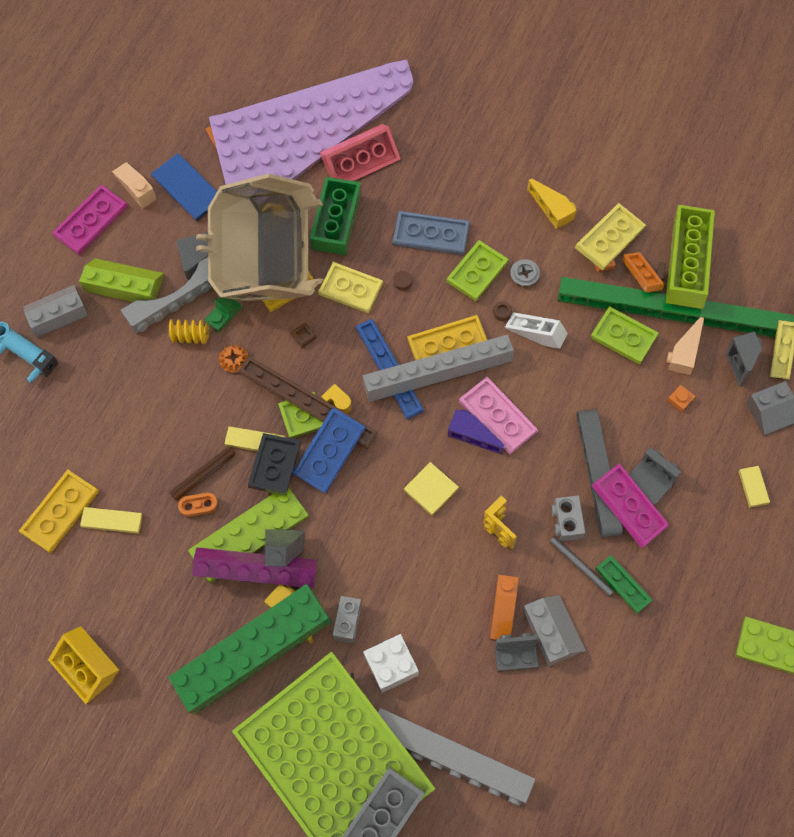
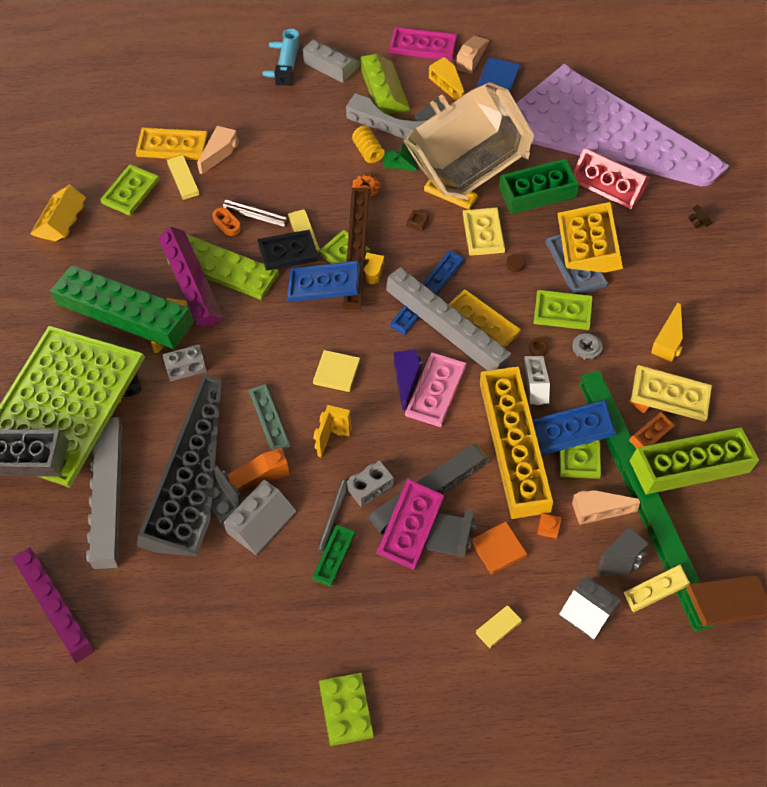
camera: 60 degrees right, 10 degrees down
(95, 578) = (129, 189): none -> lime plate
(96, 463) = (218, 148): none -> light nougat slope
(153, 221) = (446, 77): none -> yellow slope
(282, 546) = (218, 285): dark grey slope -> none
(391, 663) = (162, 410): white brick -> none
(421, 206) = (590, 239): none -> yellow slope
(446, 111) = (701, 216): none -> dark brown tile
(449, 572) = (269, 418): none -> sand green tile
(499, 689) = (184, 494): none -> dark grey wedge
(593, 379) = (515, 443): none -> yellow brick
(605, 328) = (573, 427): none -> blue tile
(683, 447) = (498, 548): none -> orange tile

